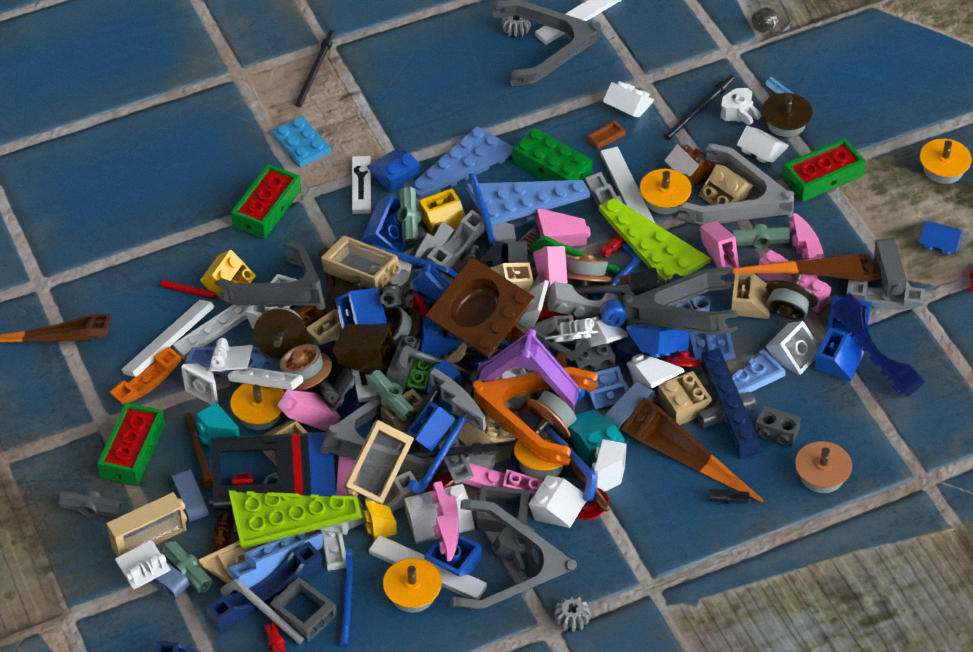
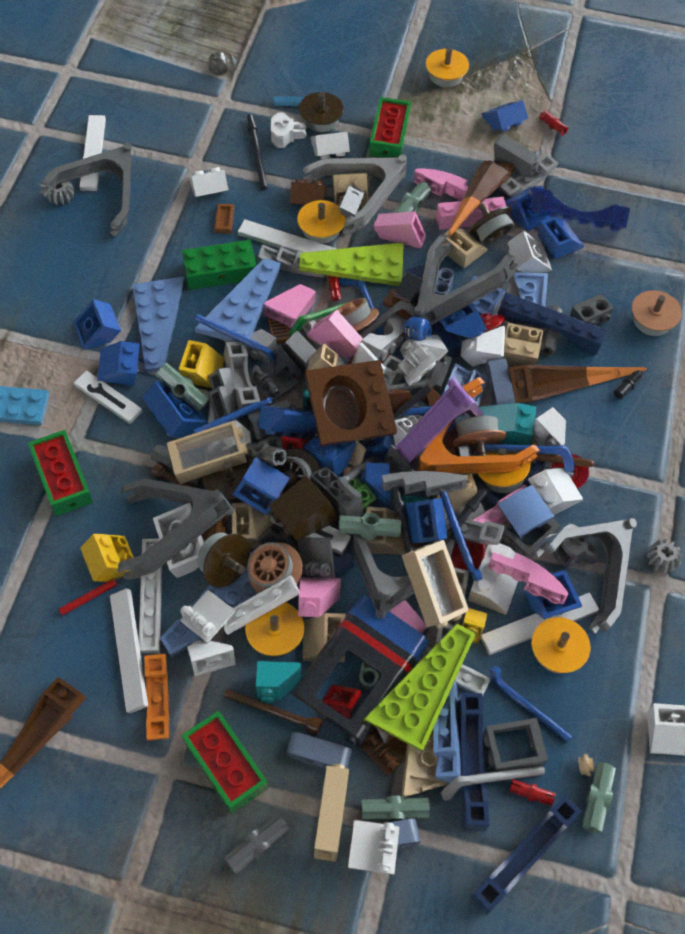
camera: 55 degrees left, 10 degrees up
(416, 132) = (96, 325): none -> blue slope
(511, 488) = (526, 510): none -> medium blue slope
(701, 192) = (351, 201): none -> slope

